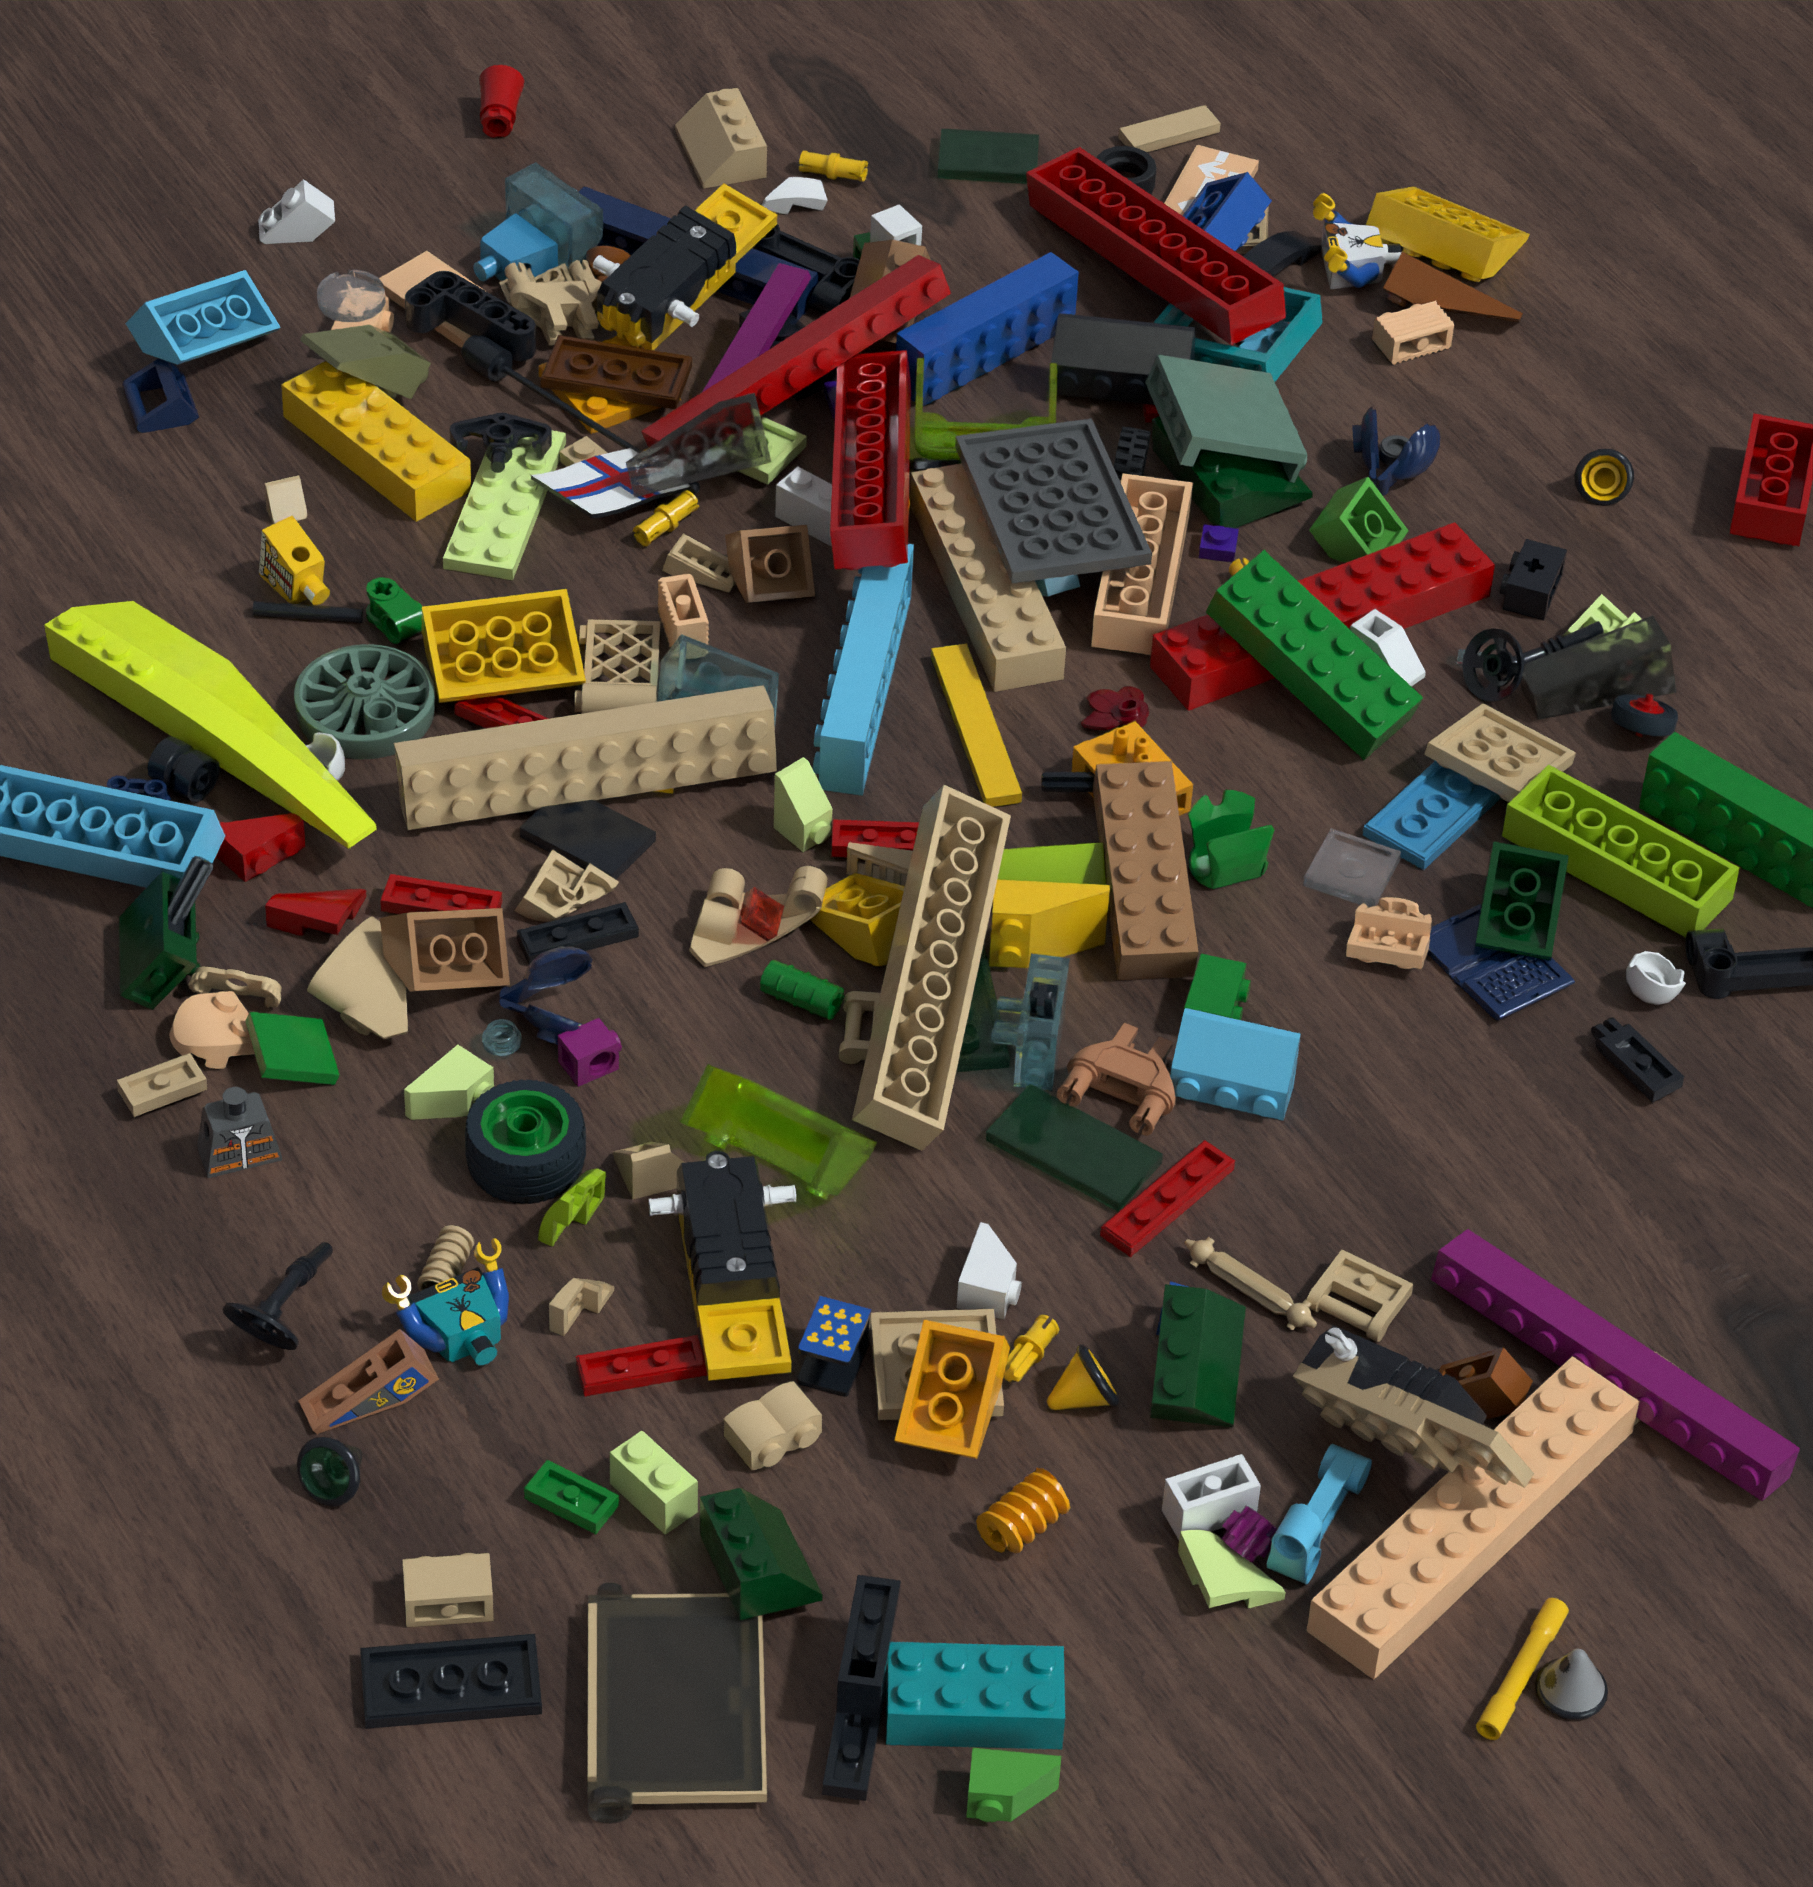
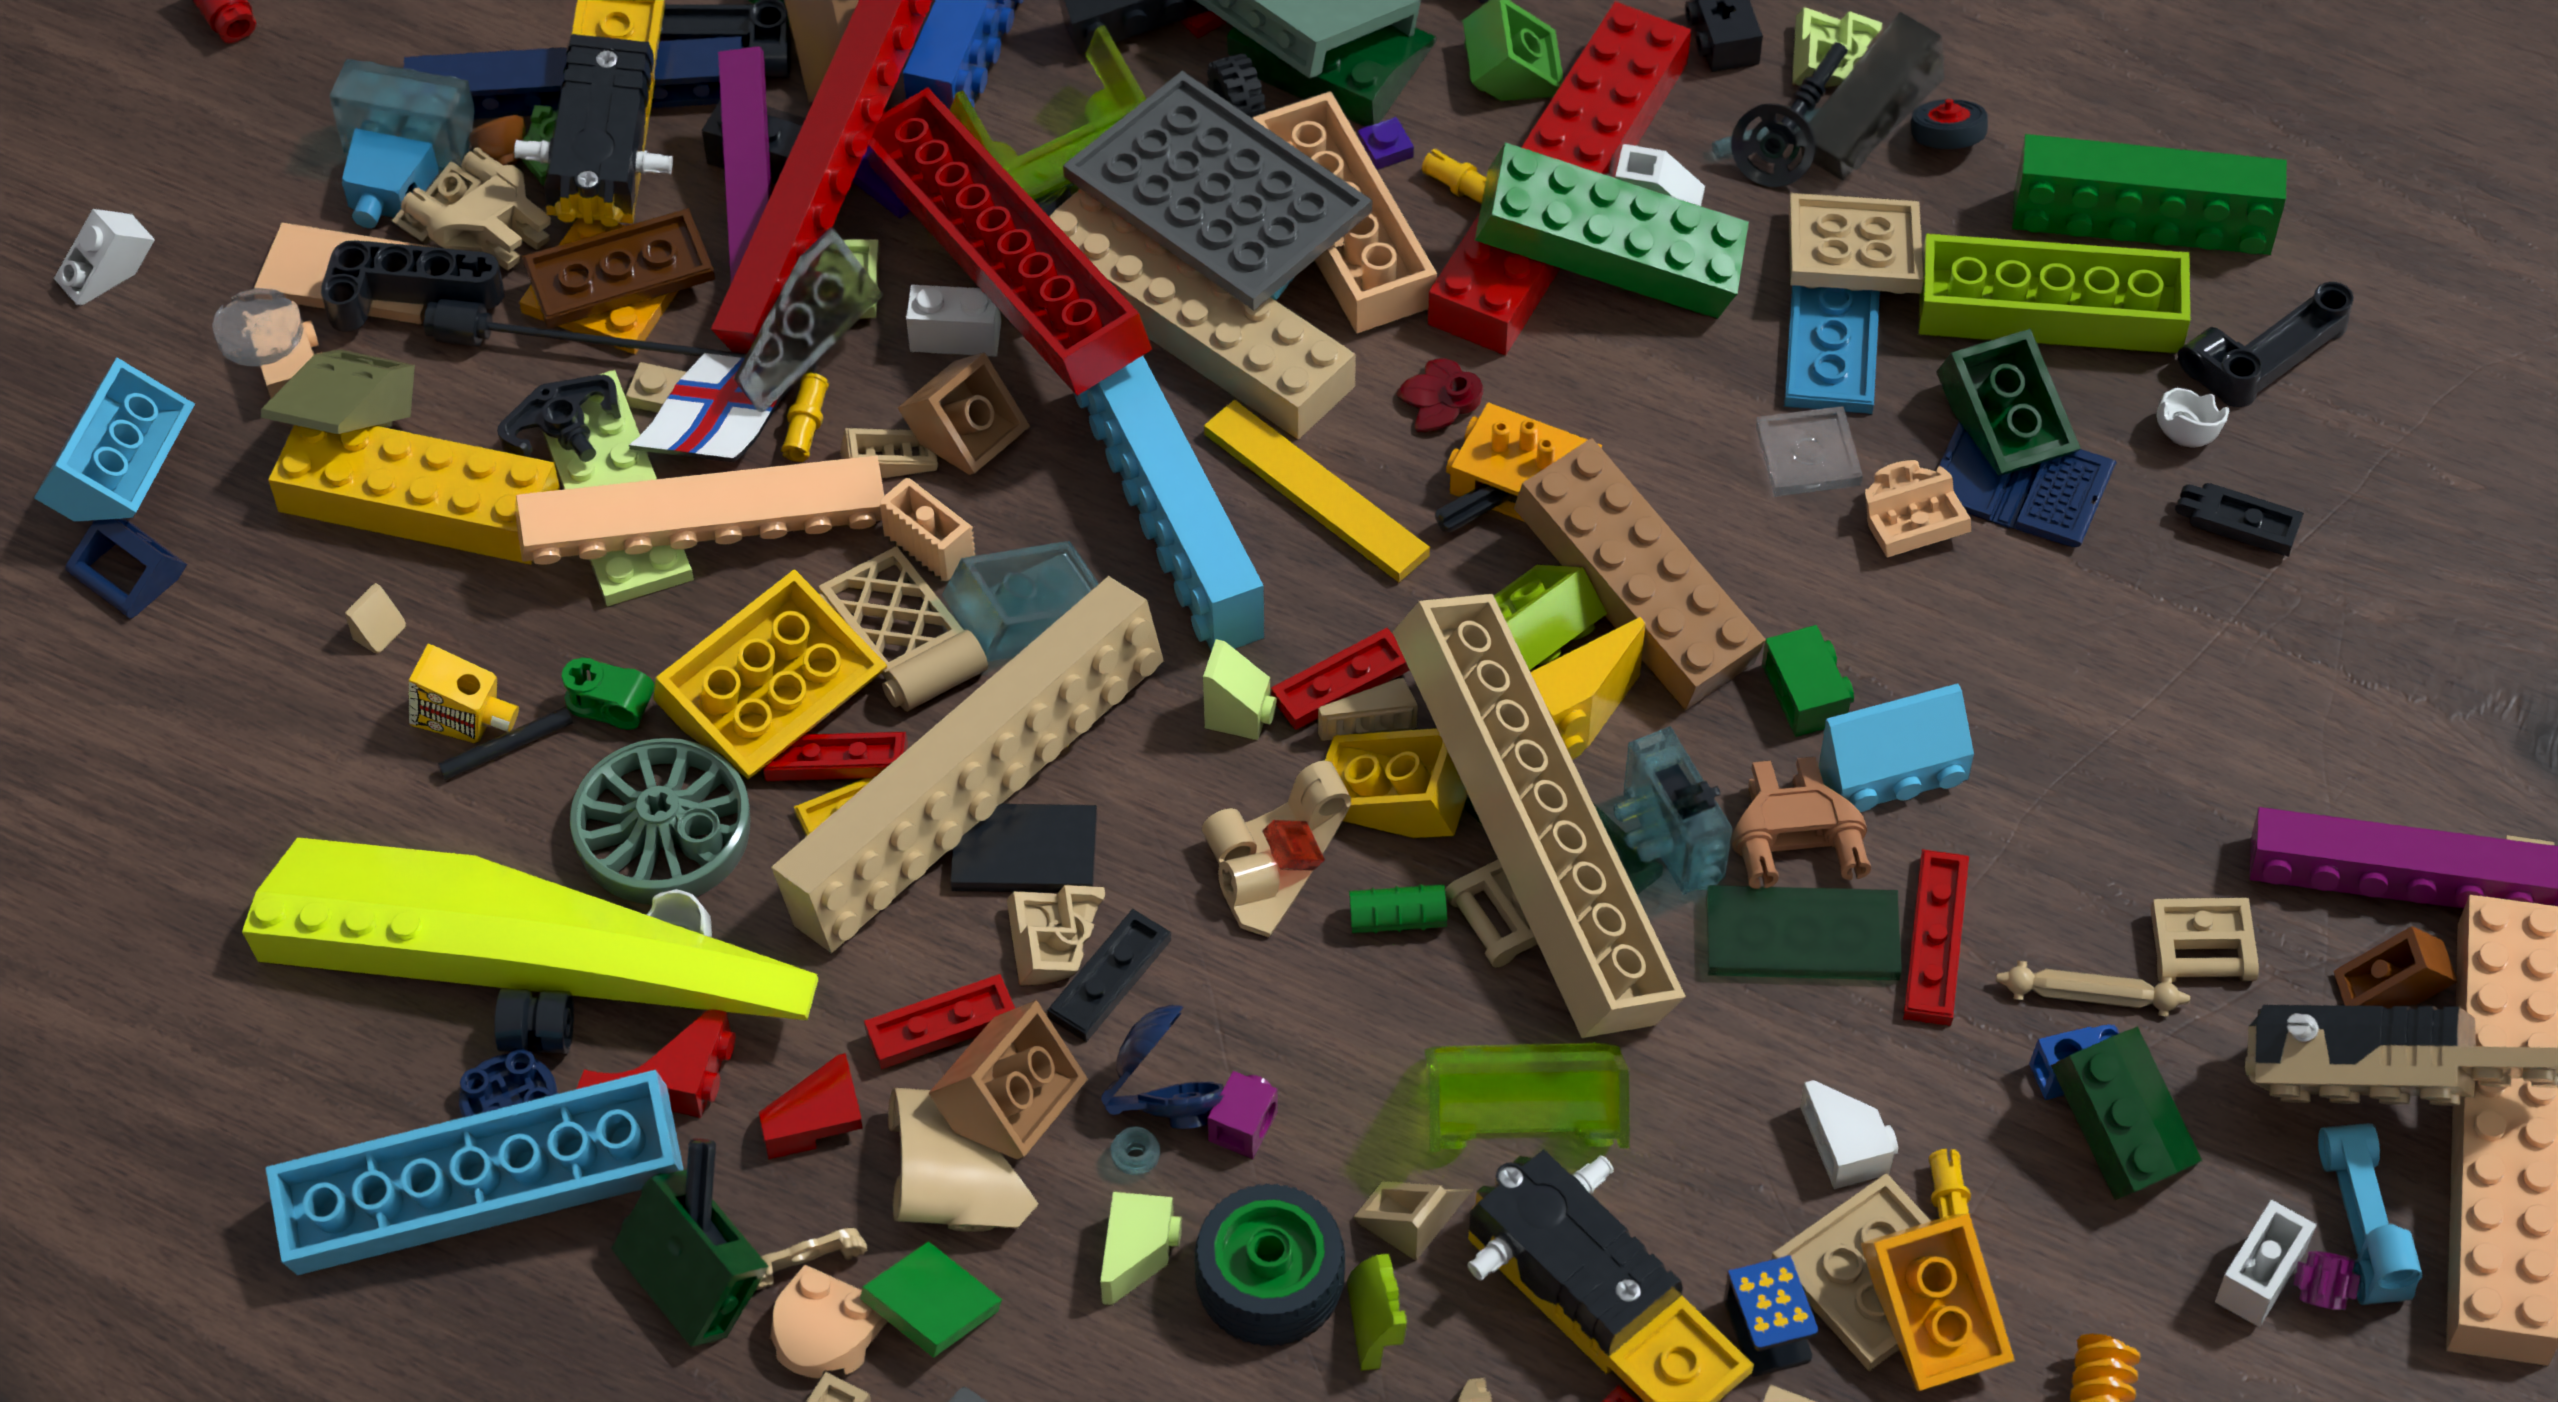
camera: 30 degrees left, 10 degrees up
(538, 528) = (699, 509): none -> light nougat brick
(1082, 1384) = (2037, 1207): yellow hat -> none
(1223, 843) = (1672, 486): green piece -> none
(1223, 1572) = (2331, 1338): yellowish green slope -> none

